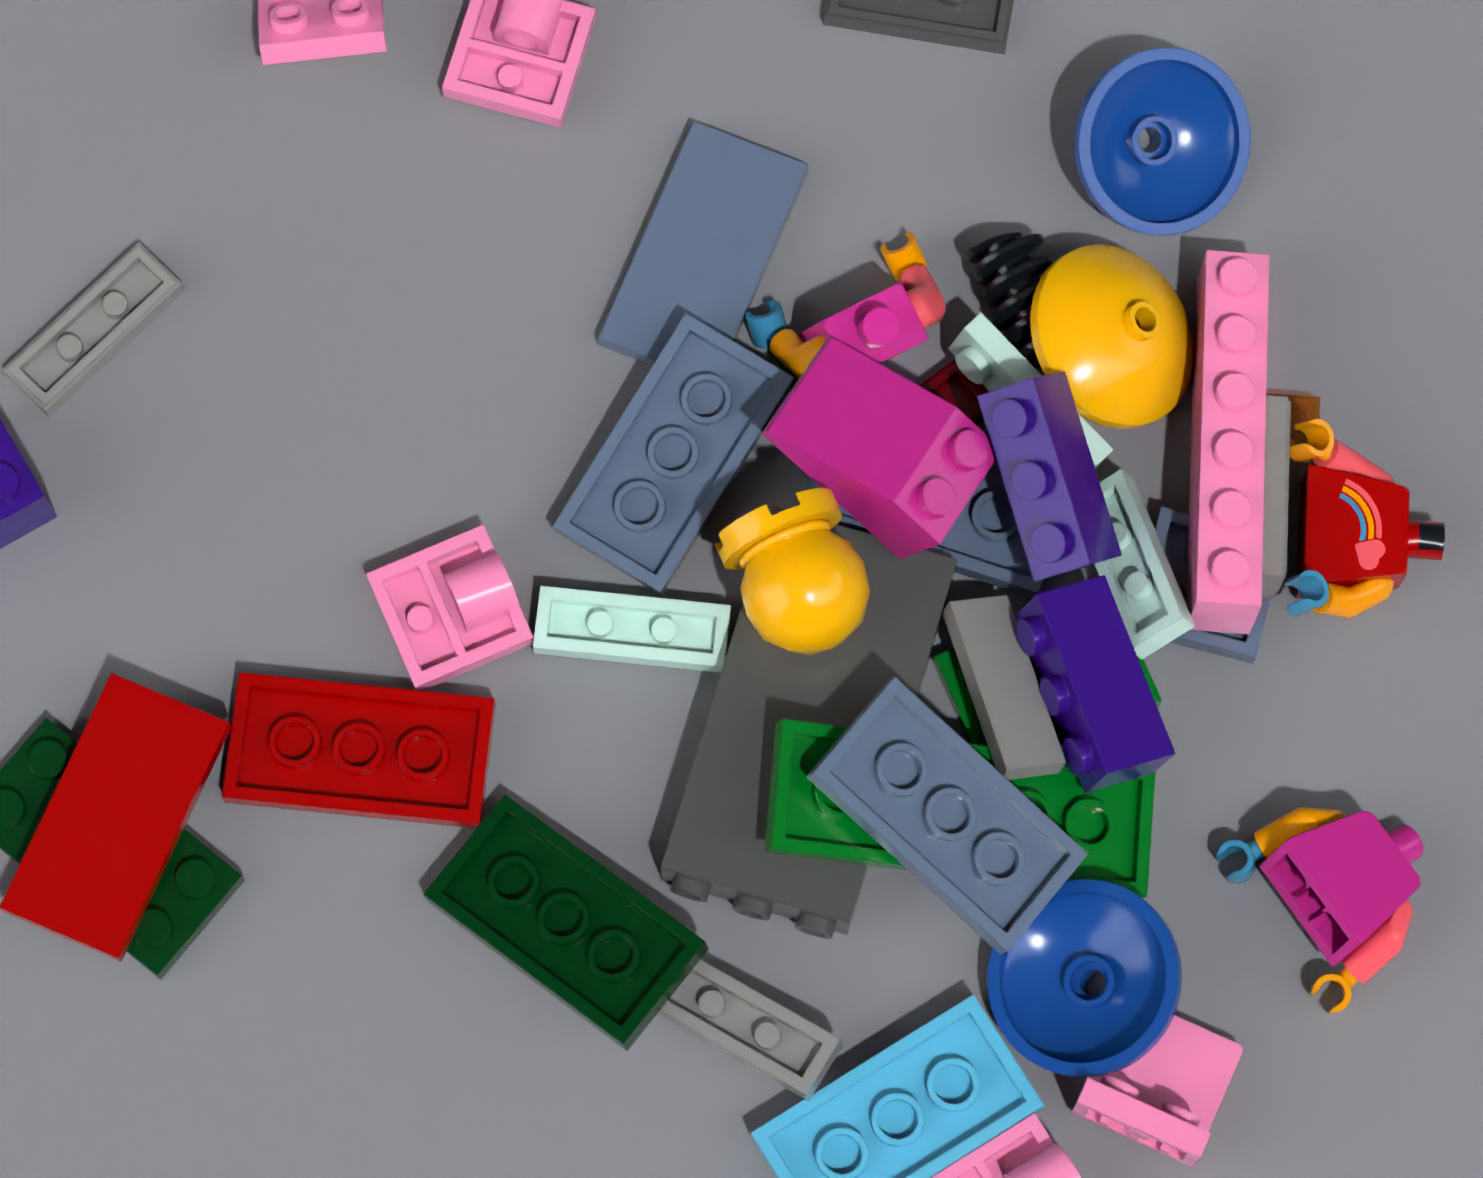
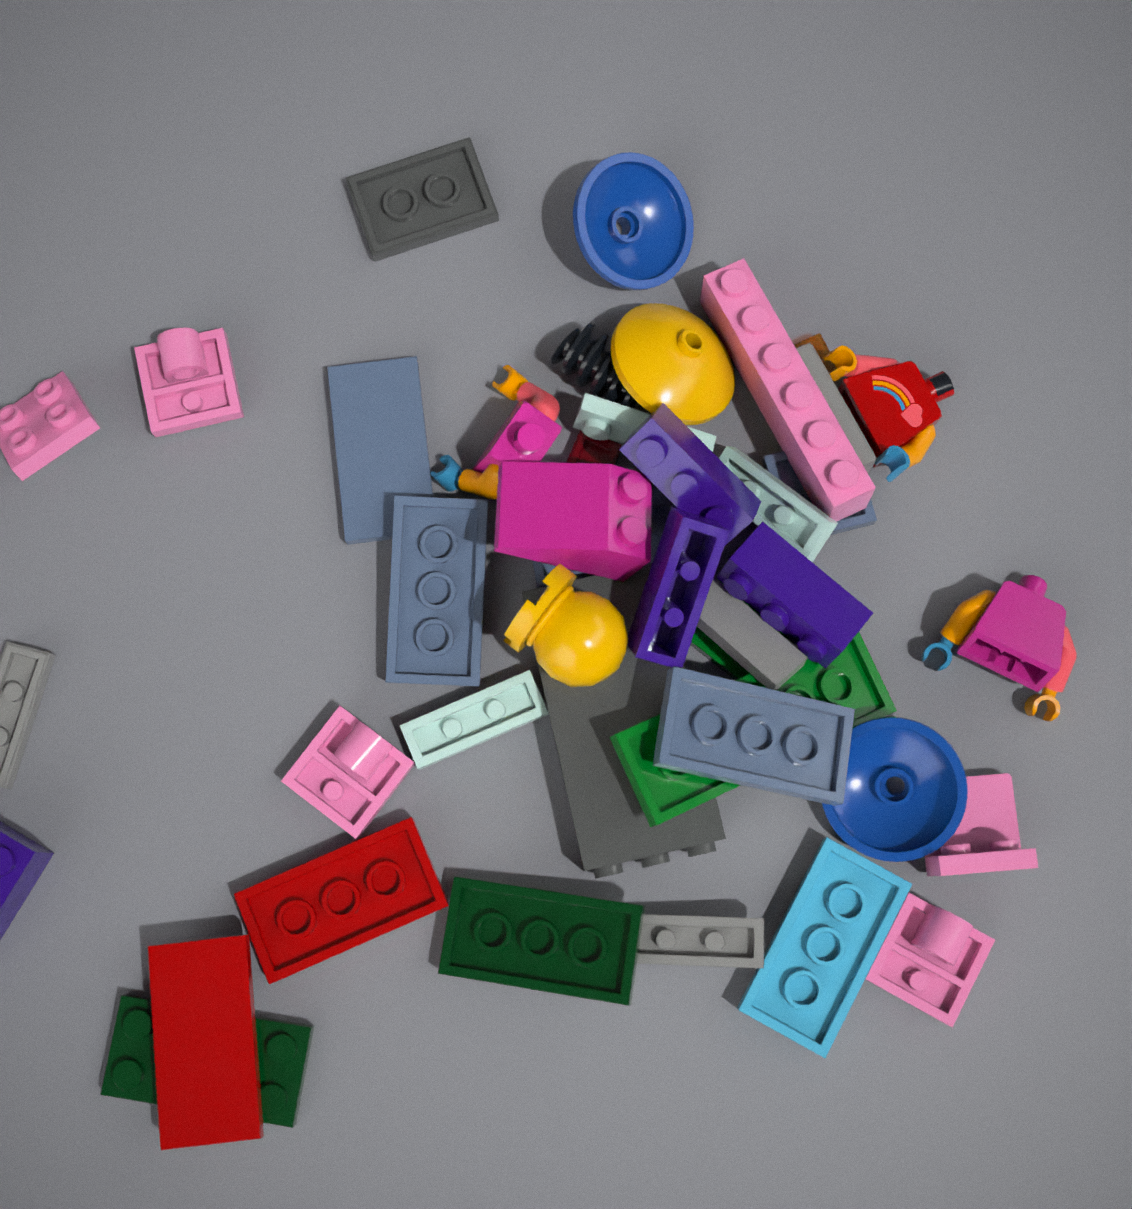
camera: 30 degrees left, 5 degrees up
(951, 591) = (676, 588): none -> dark purple brick

